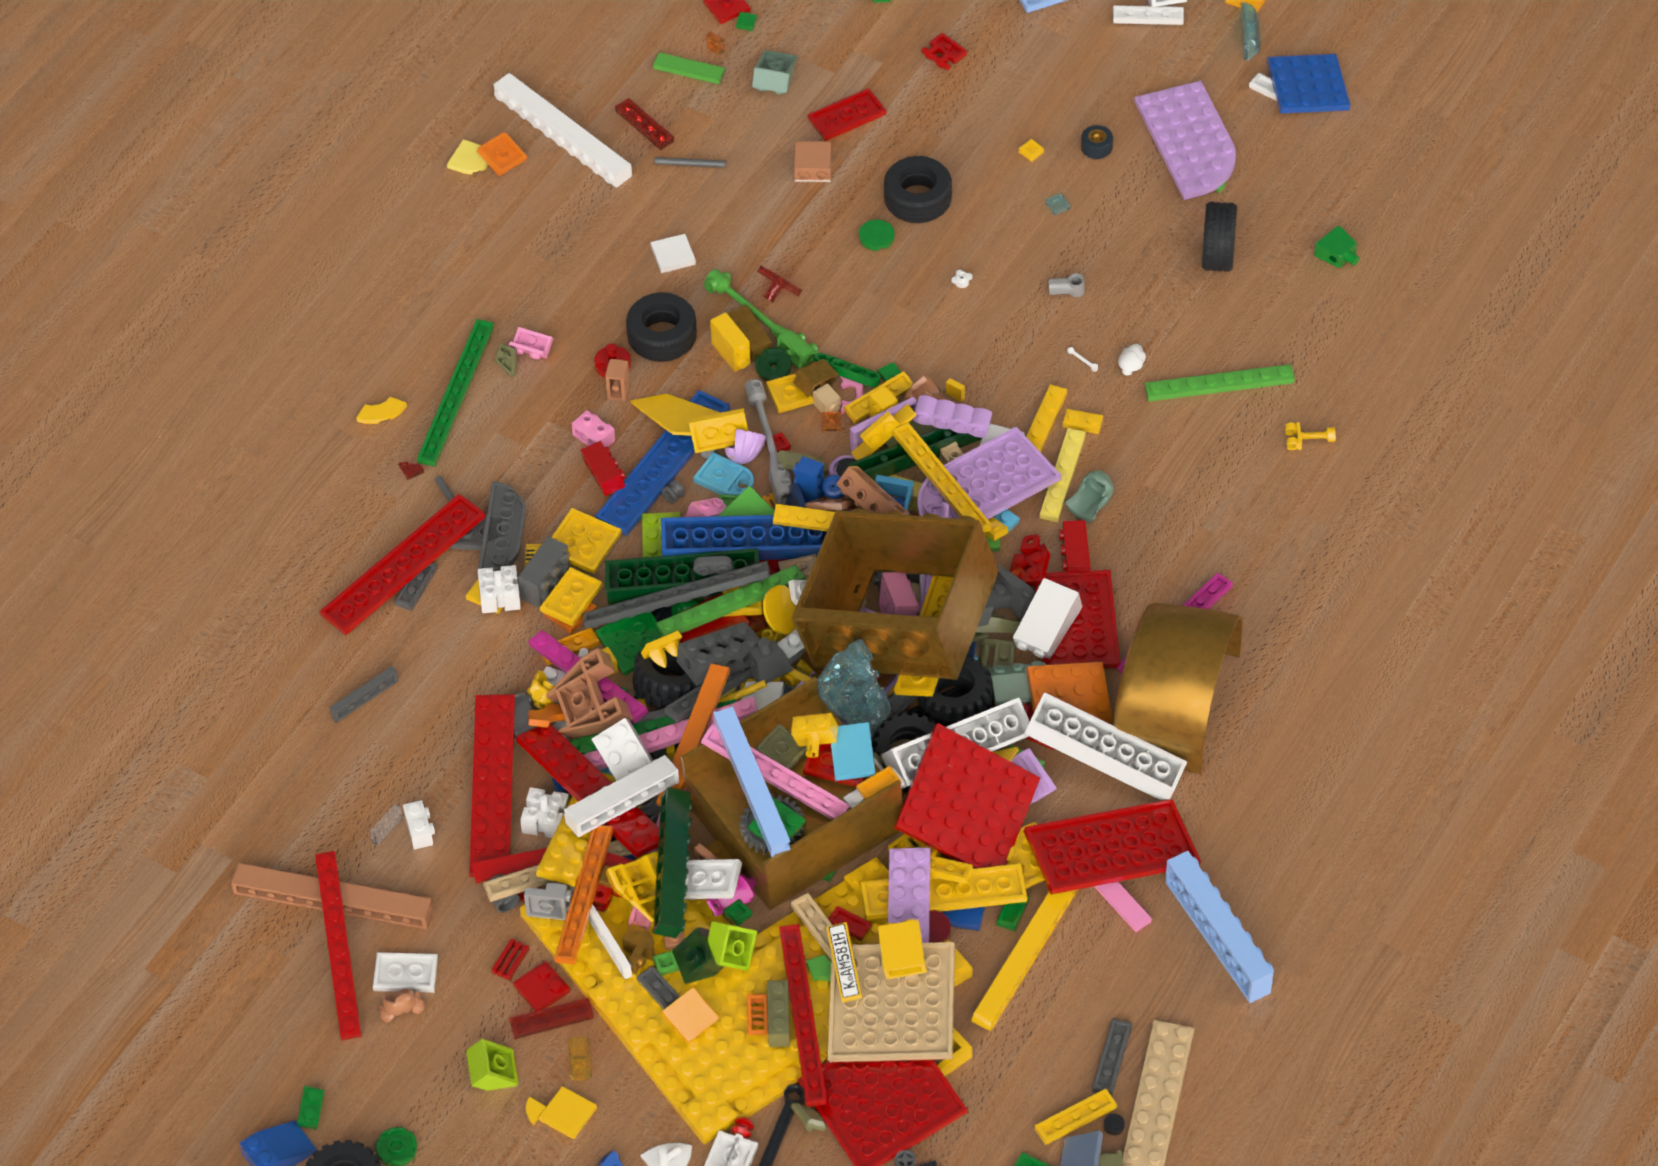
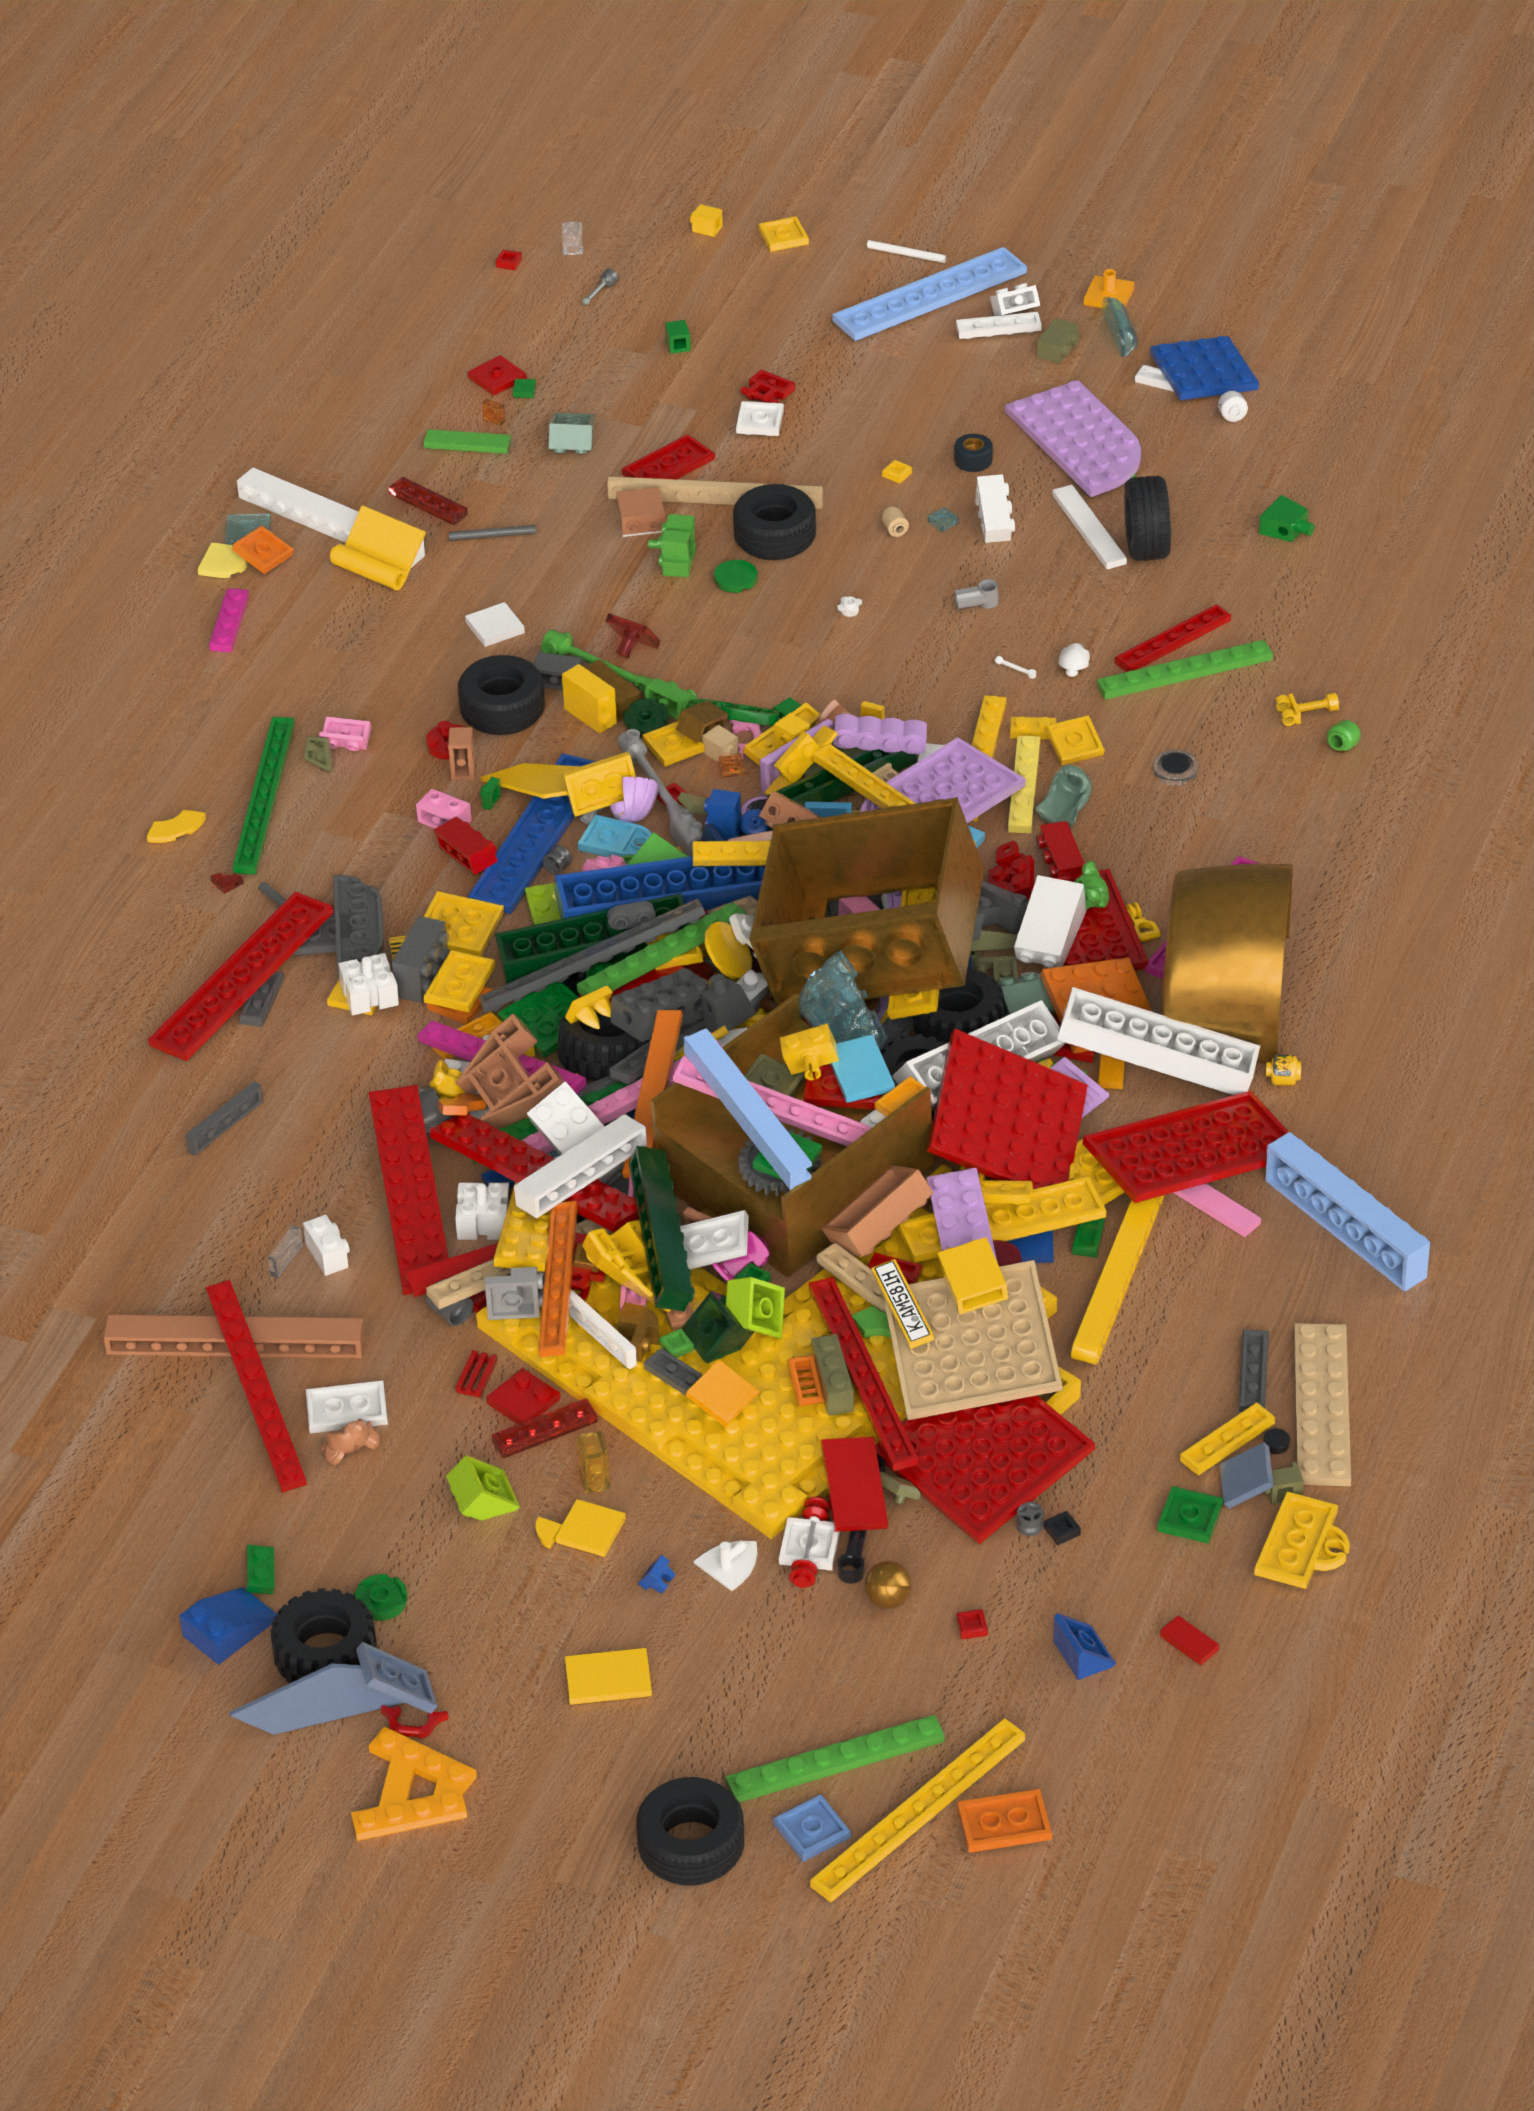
camera: 10 degrees left, 10 degrees down
(462, 217) = (229, 620): none -> dark pink plate
(492, 126) = (241, 525): none -> clear light blue tile
(593, 169) = (379, 548): none -> yellow door
(634, 419) = (490, 793): none -> green plate
(710, 306) = (553, 666): none -> dark grey brick
(774, 1112) = (854, 1484): none -> red tile
(833, 201) = (677, 545): none -> bright green brick
(845, 872) = (878, 1210): none -> nougat piece
(872, 149) = (700, 491): none -> tan plate
(930, 81) = (760, 418): none -> white plate
(1017, 201) = (895, 521): none -> tan brick
(1065, 765) = (1111, 1072): none -> light orange tile
(1089, 588) = (1094, 886): none -> bright green hair
(1100, 203) = (994, 508): none -> white wedge
(1113, 439) = (1075, 740): none -> yellow tile
(1121, 613) = (1136, 916): none -> yellow piece
(1175, 229) = (1089, 527): none -> white tile
(1188, 477) = (1175, 767): none -> tile
(1193, 39) = (1058, 341): none -> olive brick
(1204, 783) = (1284, 1070): none -> yellow head
(1217, 351) = (1173, 638): none -> red tile
(1322, 127) = (1232, 406): none -> white head
(1331, 470) = (1343, 736): none -> bright green head

